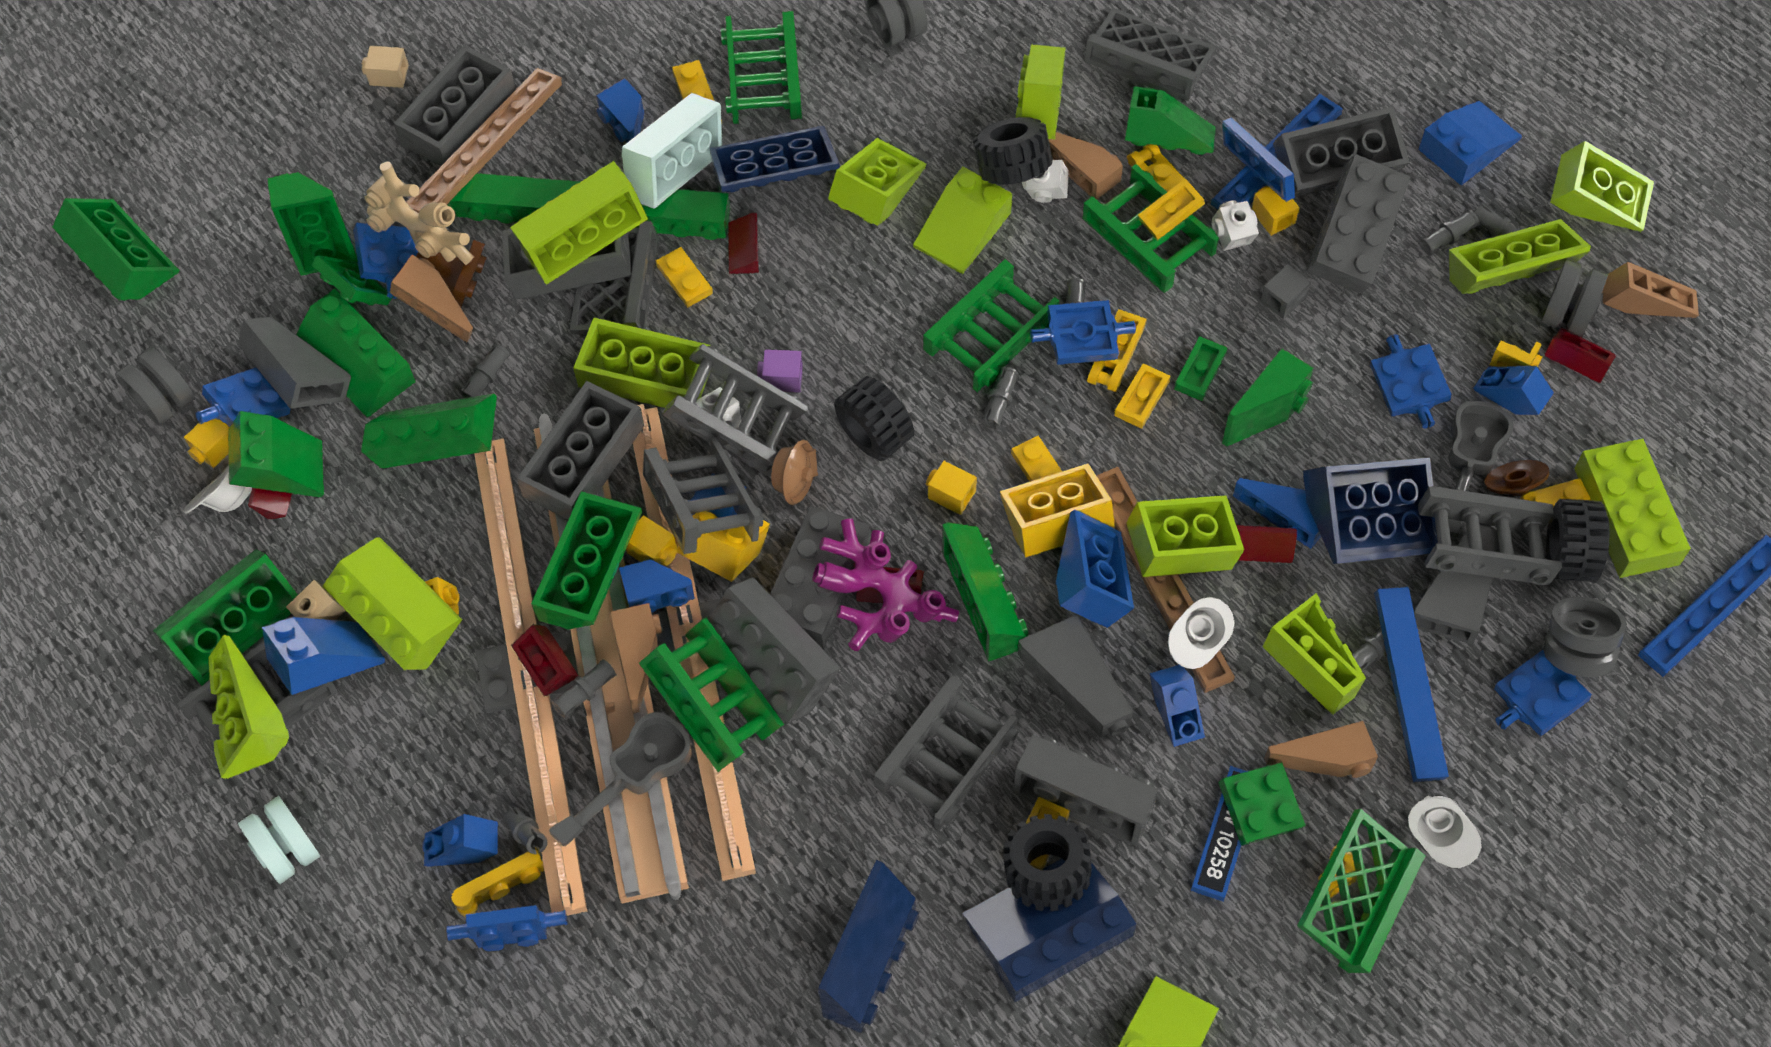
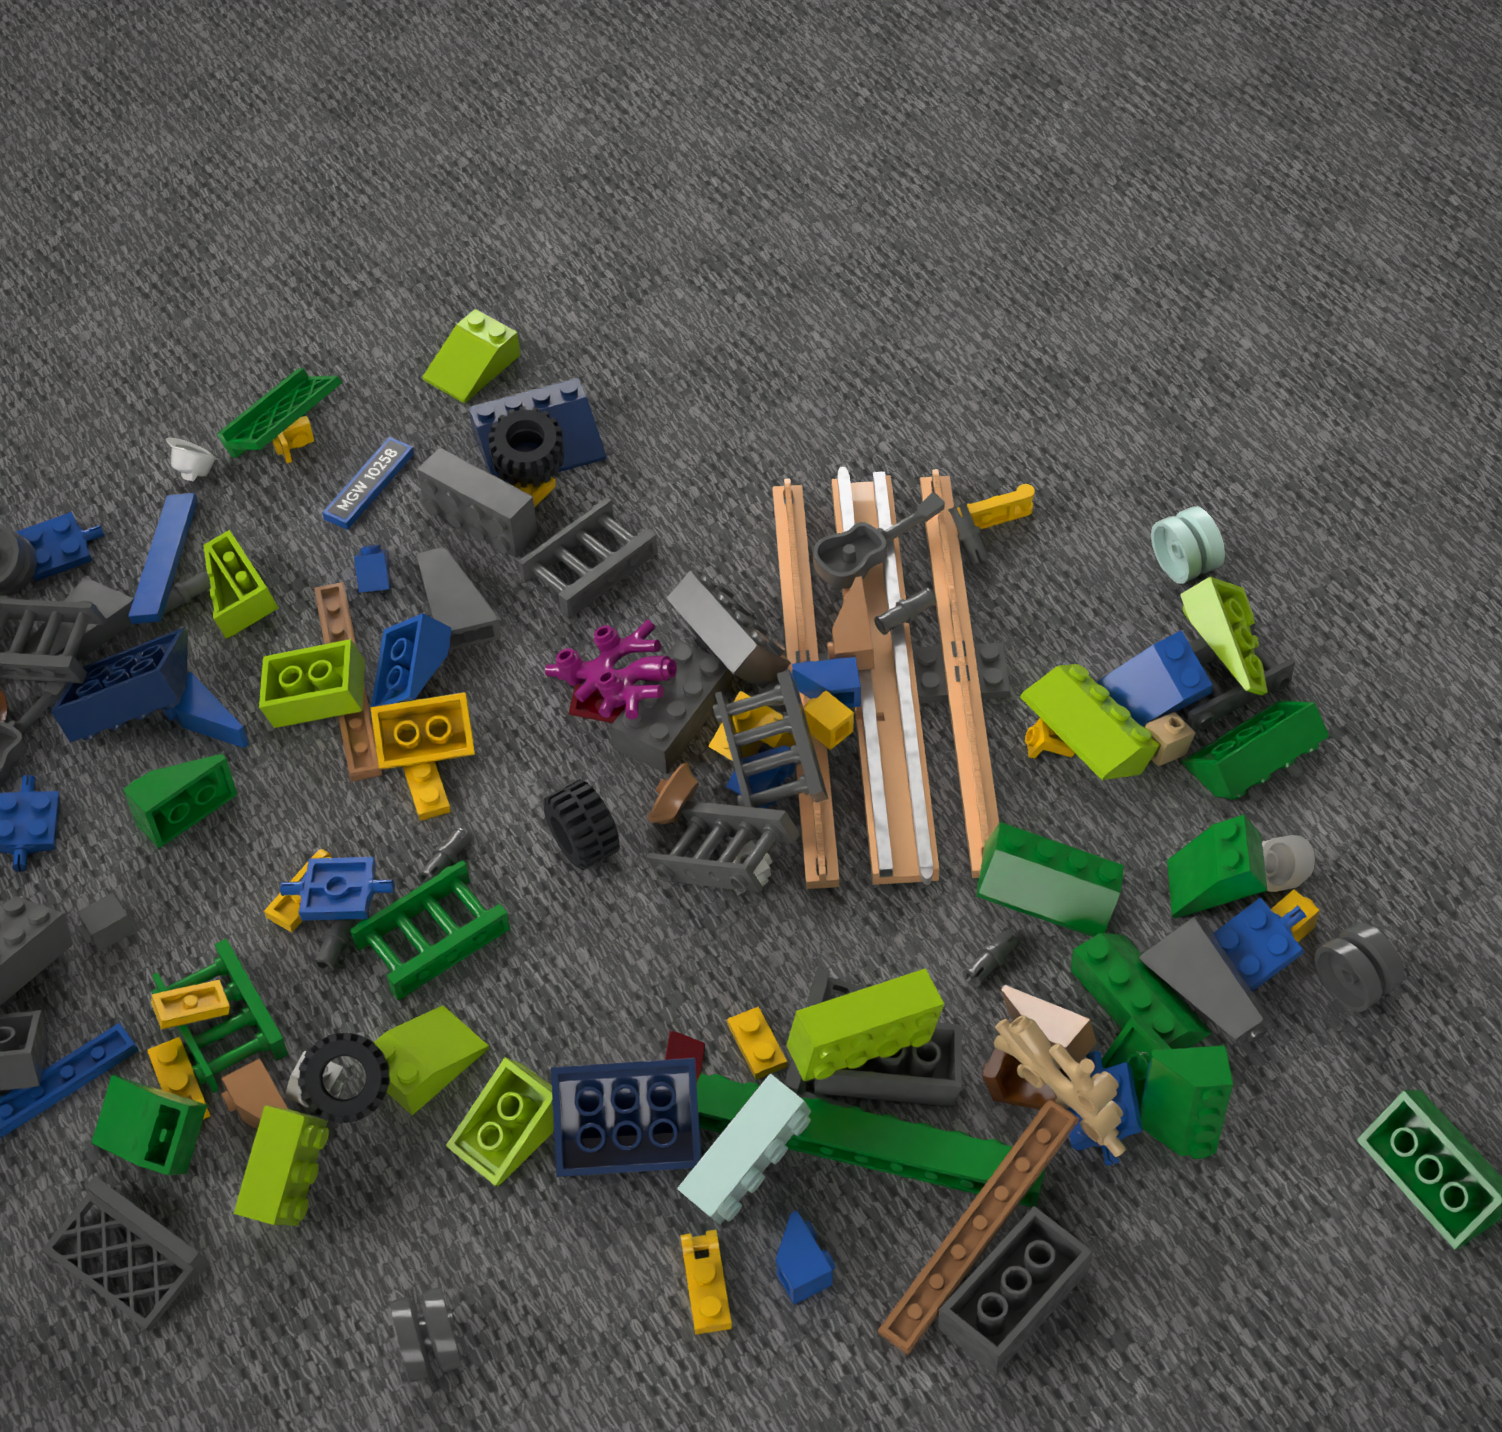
camera: 170 degrees left, 10 degrees down
(385, 66) = (1110, 1379): tan brick -> none
(461, 841) = (1026, 539): blue slope -> none
(507, 926) = (987, 465): blue plate -> none
(544, 659) = (940, 645): dark red slope -> none
(581, 449) = (887, 803): dark grey brick -> none
(585, 561) = (889, 696): green slope -> none
(636, 363) = (815, 926): lime brick -> none
(691, 706) = (811, 577): green fence -> none
(782, 369) = (667, 910): medium lavender brick -> none
(785, 54) = (581, 1315): green fence -> none
(867, 950) = (693, 419): dark blue slope -> none
(951, 487) = (520, 772): yellow brick -> none
(982, 590) = (517, 671): green slope -> none
(1142, 396) = (299, 839): yellow plate -> none
(1200, 368) = (228, 858): green plate -> none
(1200, 632) = (332, 605): white piece -> none
(1235, 224) = (125, 996): white brick -> none
(1258, 159) = (67, 1057): blue tile -> none
(1261, 804) = (331, 489): green plate -> none
(1267, 543) = (234, 690): dark red slope -> none
(1273, 211) = (72, 1017): yellow brick -> none
(1331, 752) = (261, 519): medium nougat slope -> none

